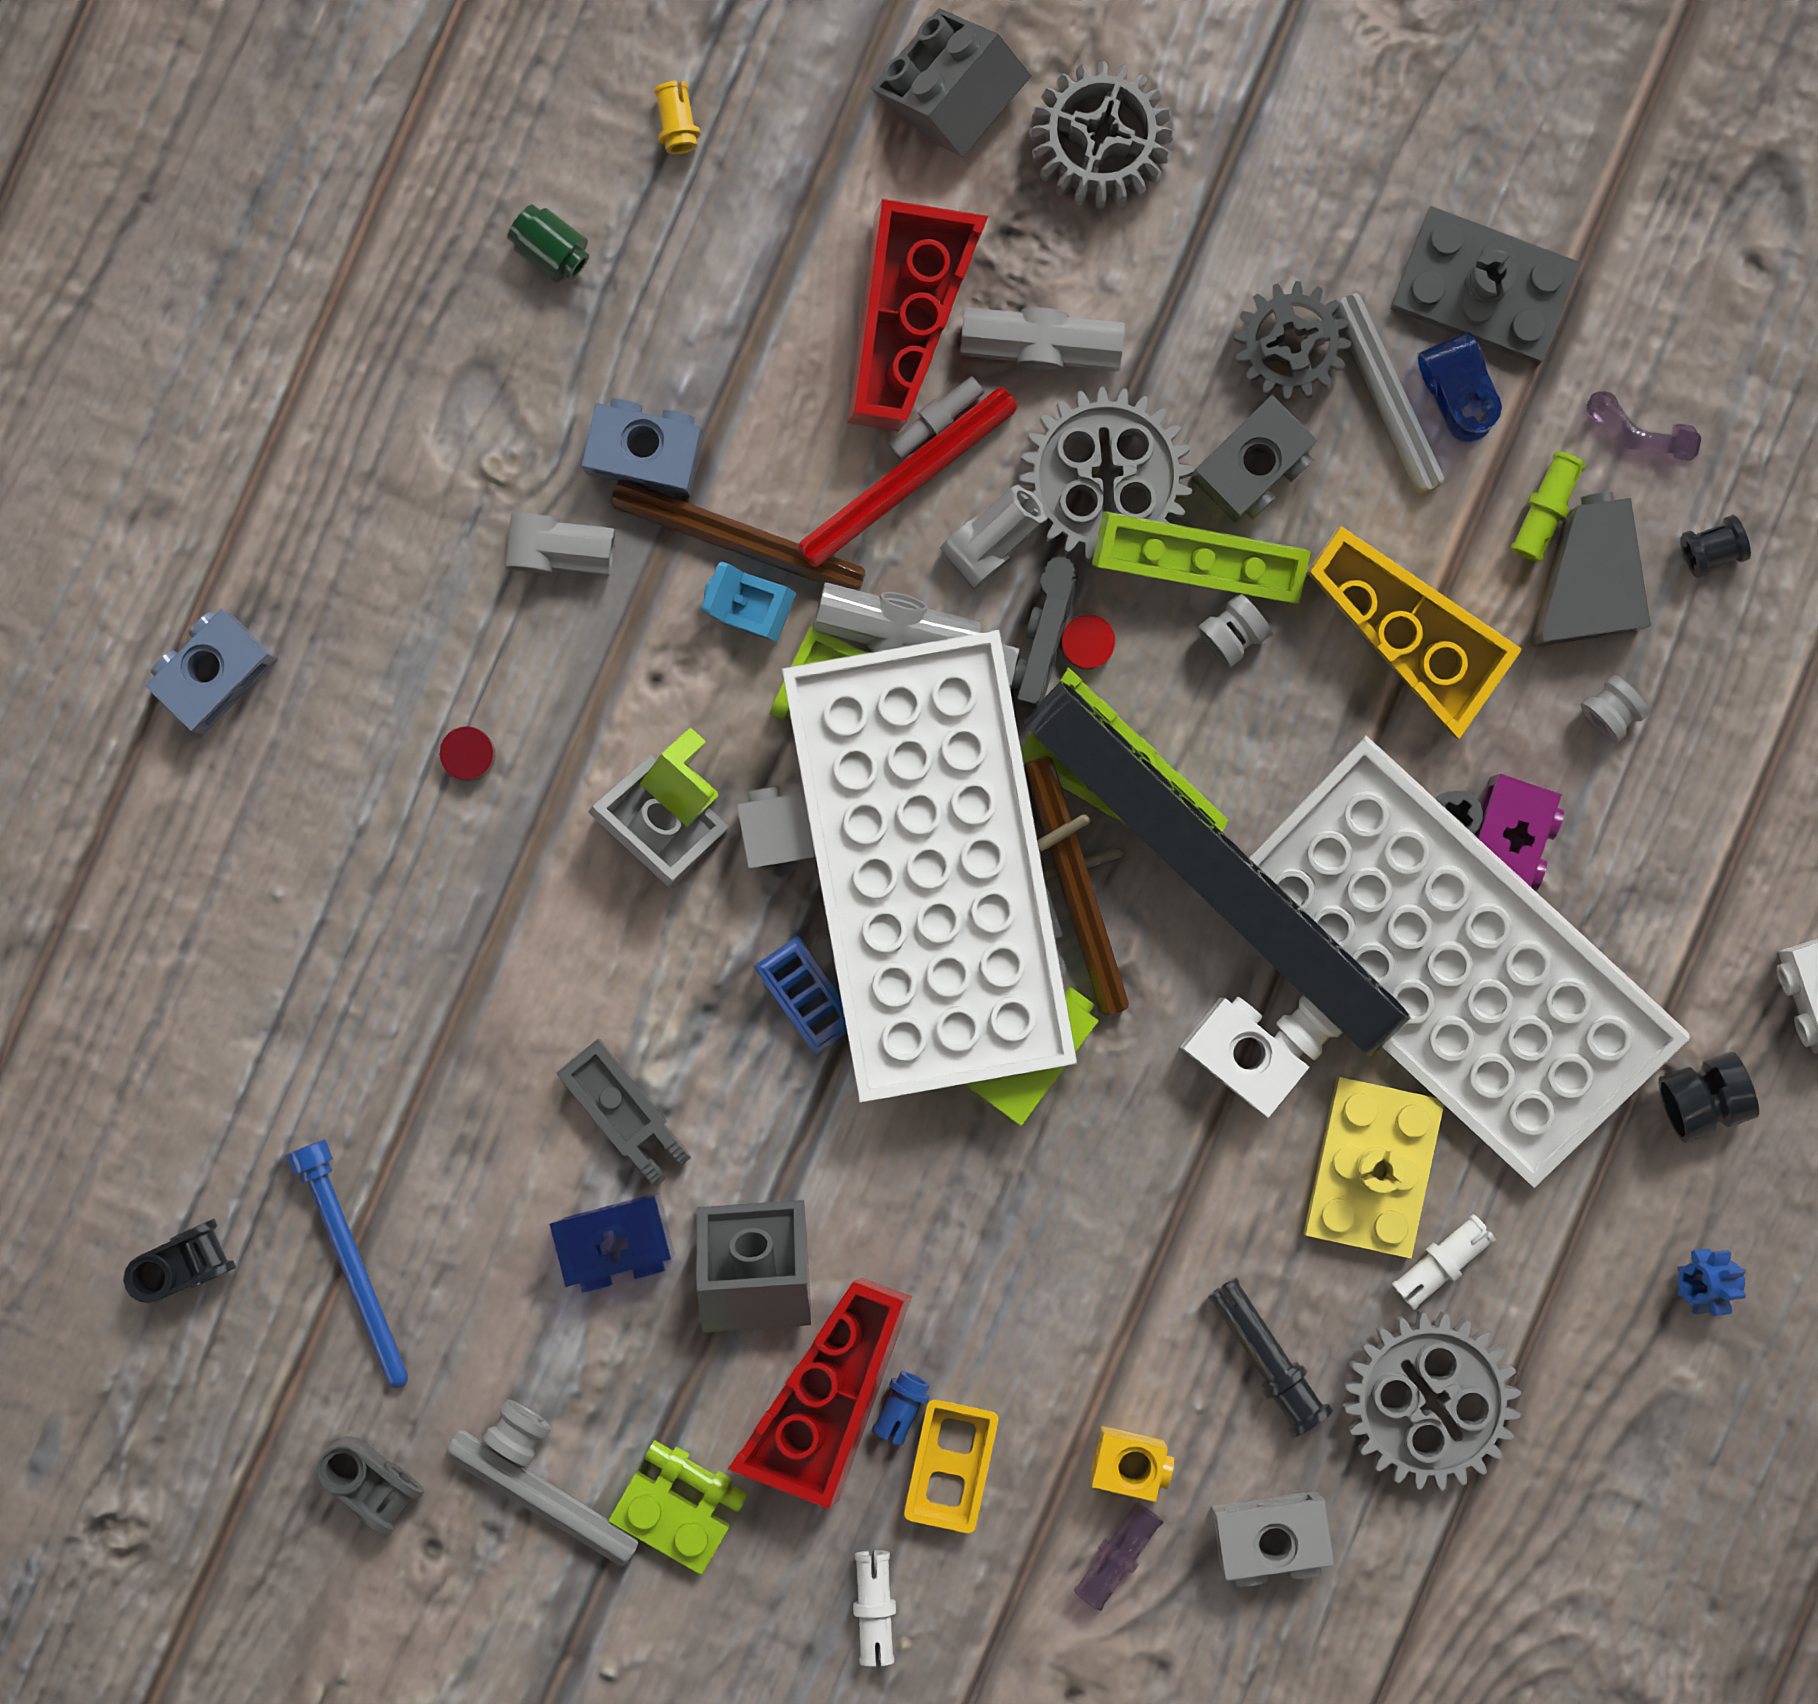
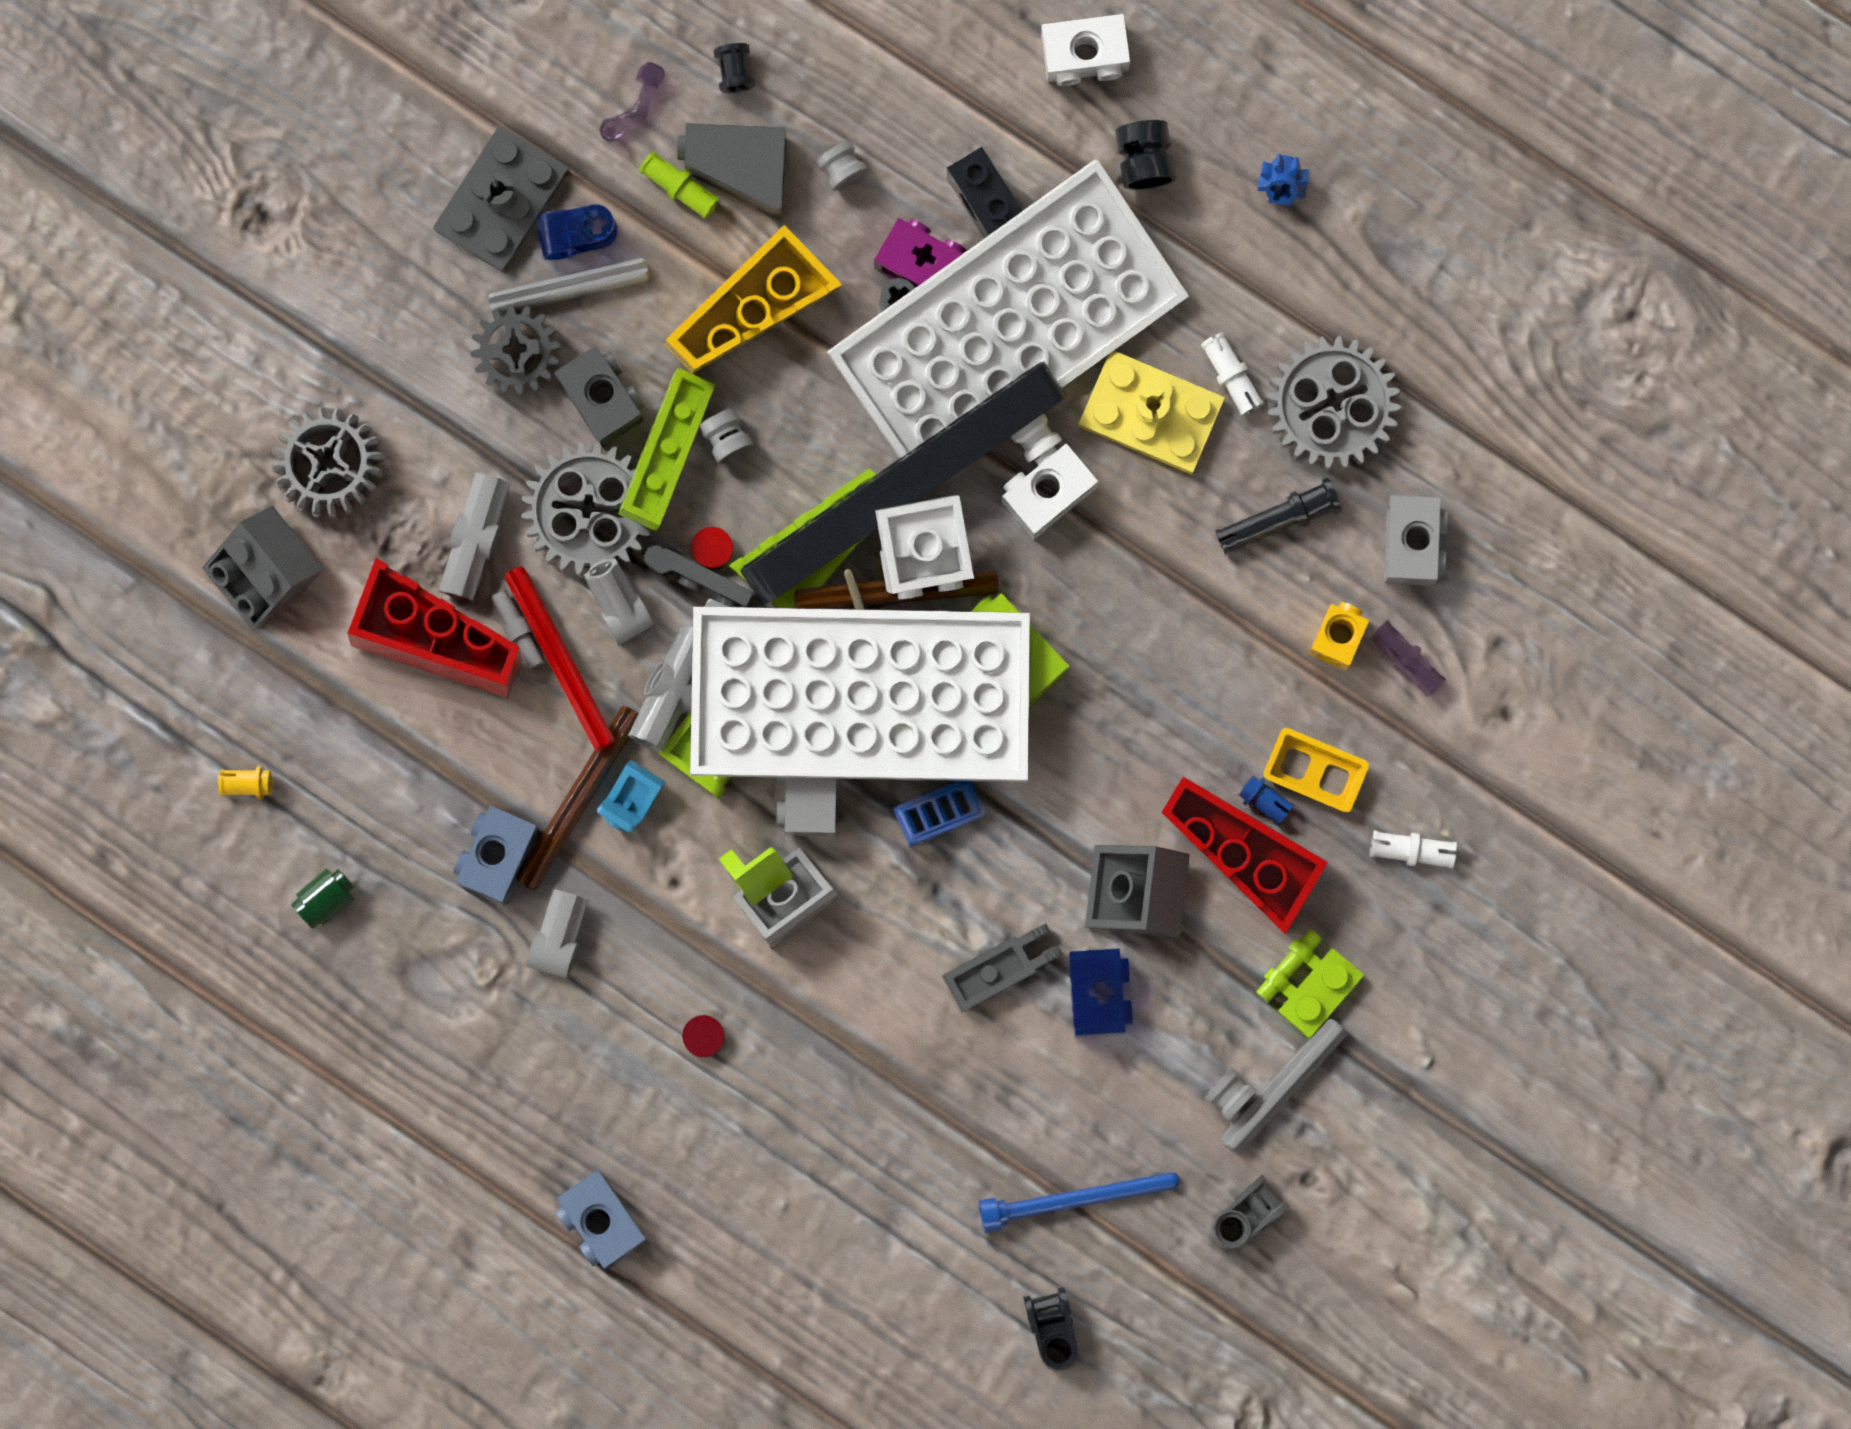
camera: 80 degrees left, 5 degrees down
(1137, 911) = (924, 546): none -> white plate
(1617, 896) = (982, 192): none -> black brick

